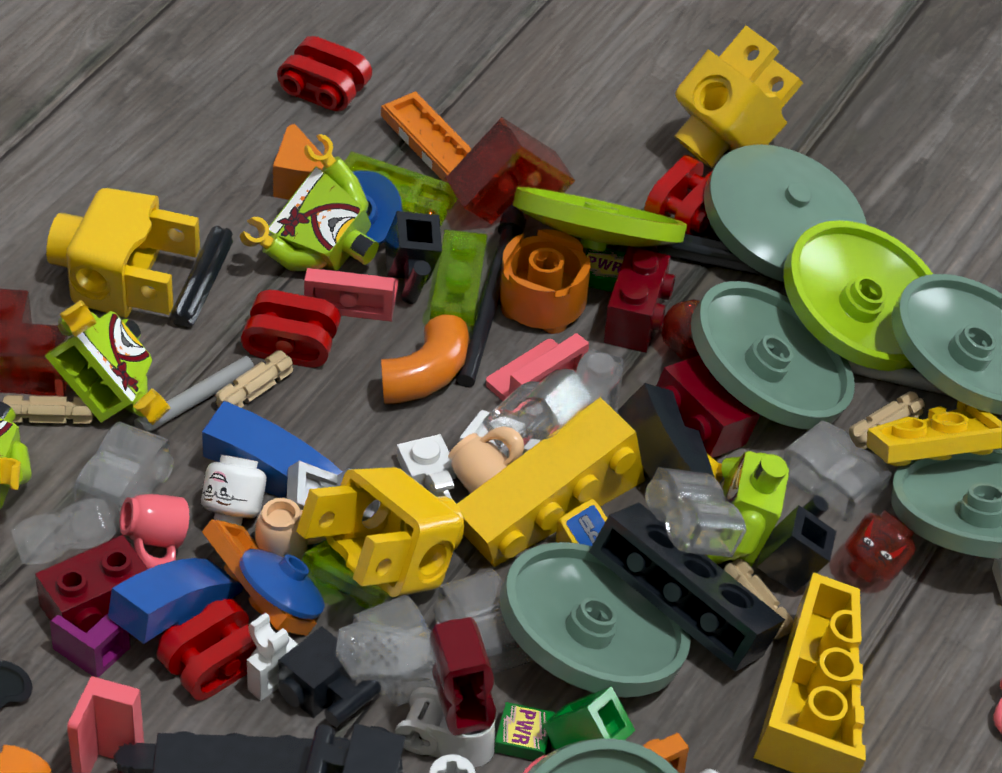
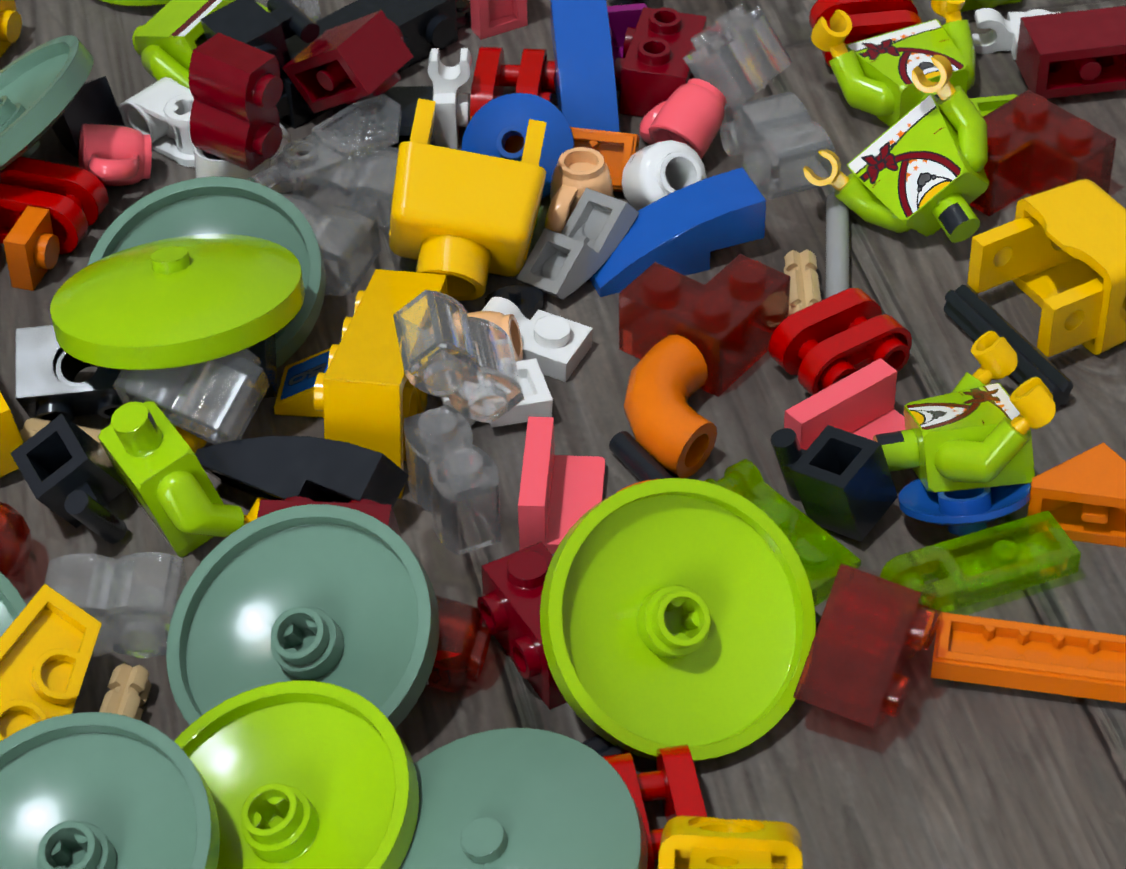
camera: 140 degrees right, 5 degrees down
(330, 682) = (350, 62): none -> dark red brick
(341, 381) = (724, 318): none -> clear red brick
(589, 718) = (101, 200): green brick -> none
(657, 552) = (177, 301): none -> lime dish

